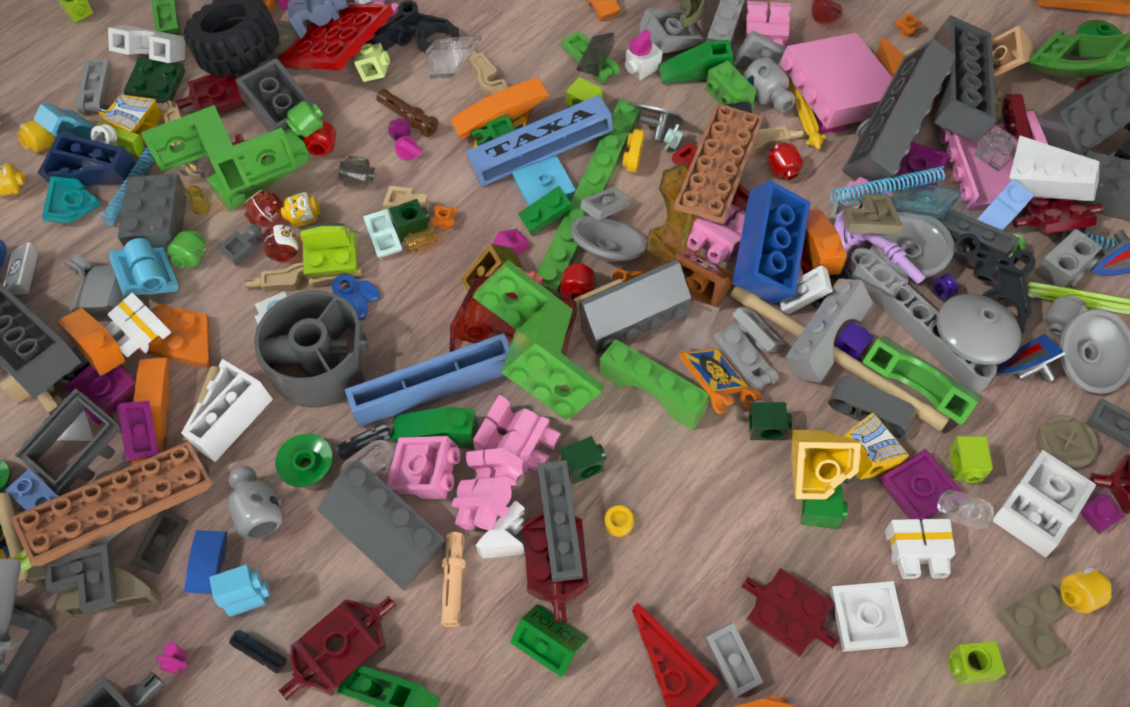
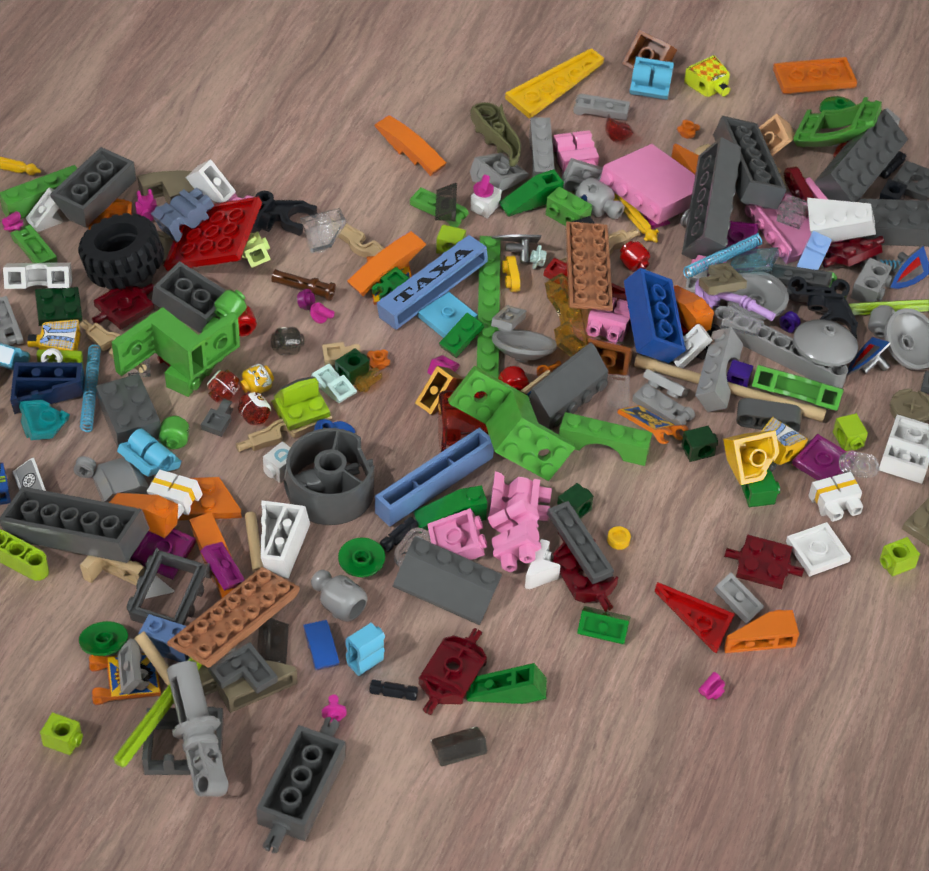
camera: 25 degrees left, 10 degrees down
(199, 203) = (162, 396): clear yellow pin -> none
(452, 585) = (511, 596): light nougat pin -> none

